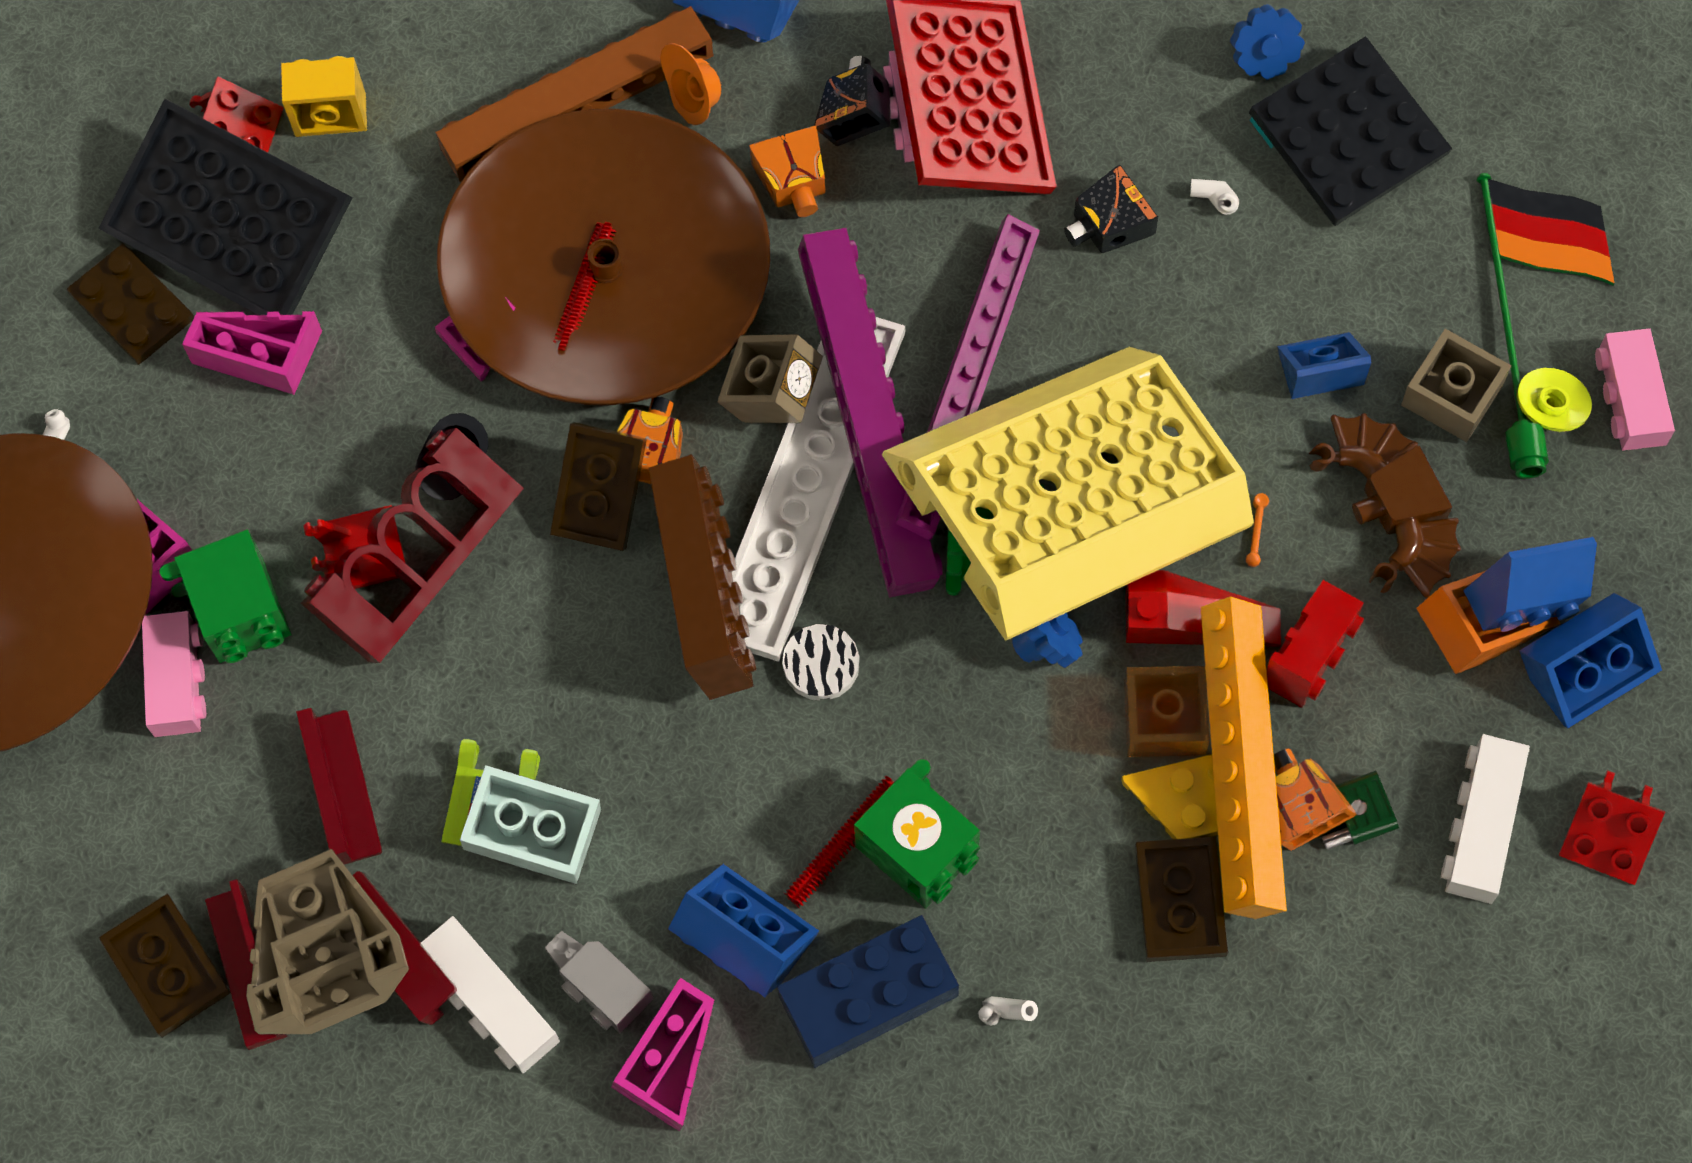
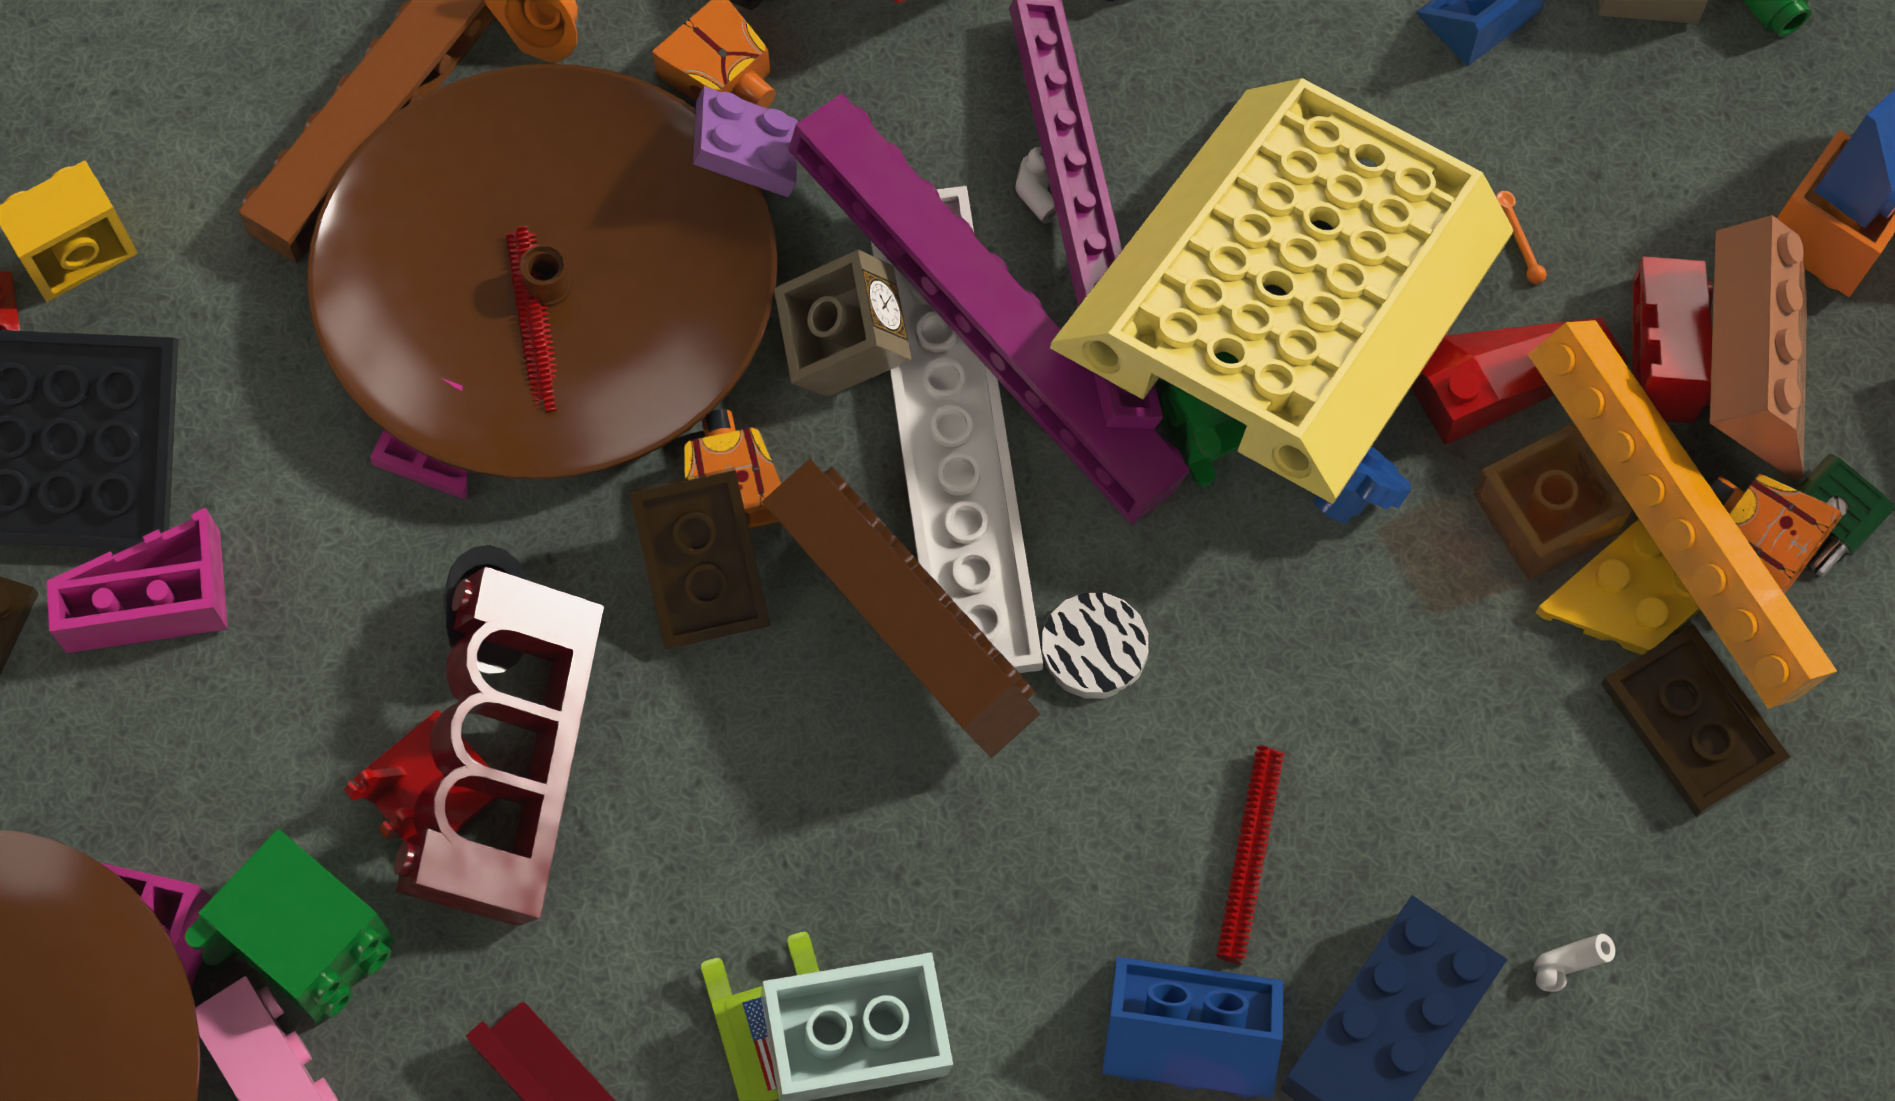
camera: 30 degrees left, 0 degrees up
(774, 230) = (744, 141): none -> medium lavender plate
(918, 837) = (1352, 801): green container -> none
(948, 345) = (1033, 186): none -> white arm
(1364, 676) = (1760, 341): none -> nougat slope
(1399, 493) = (1663, 119): reddish brown torso -> none

